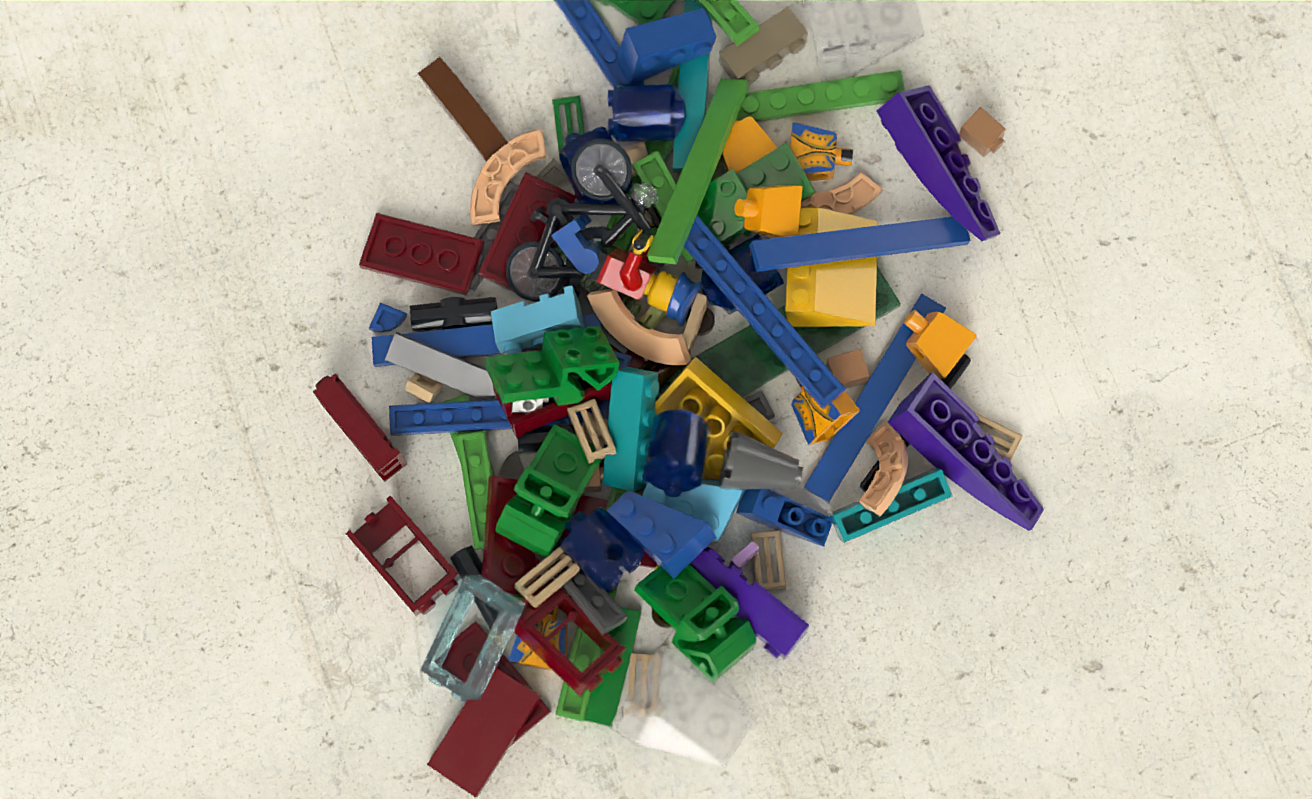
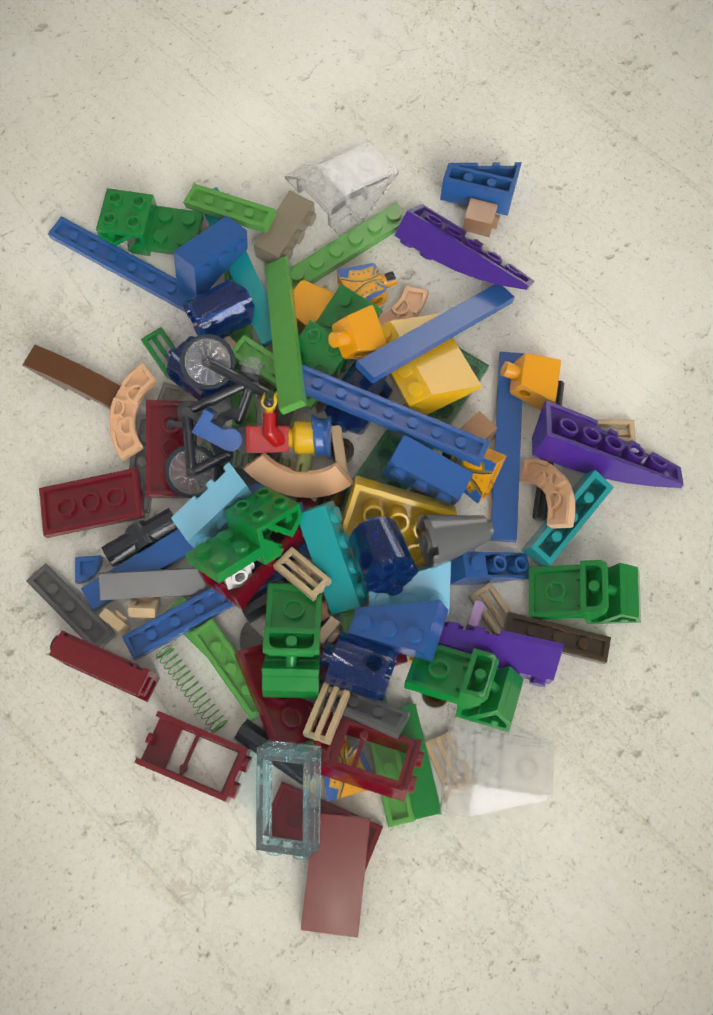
camera: 30 degrees left, 5 degrees down
(353, 351) = (70, 607): none -> dark grey tile
(390, 387) = (115, 620): none -> tan plate
(436, 540) = (168, 652): none -> bright green piece
(591, 500) = (329, 632): none -> tan plate
(769, 388) = (427, 471): none -> blue wedge
(822, 622) = (576, 641): none -> dark brown tile
(867, 588) = (586, 592): none -> green piece
(1008, 99) = (485, 183): none -> blue wedge

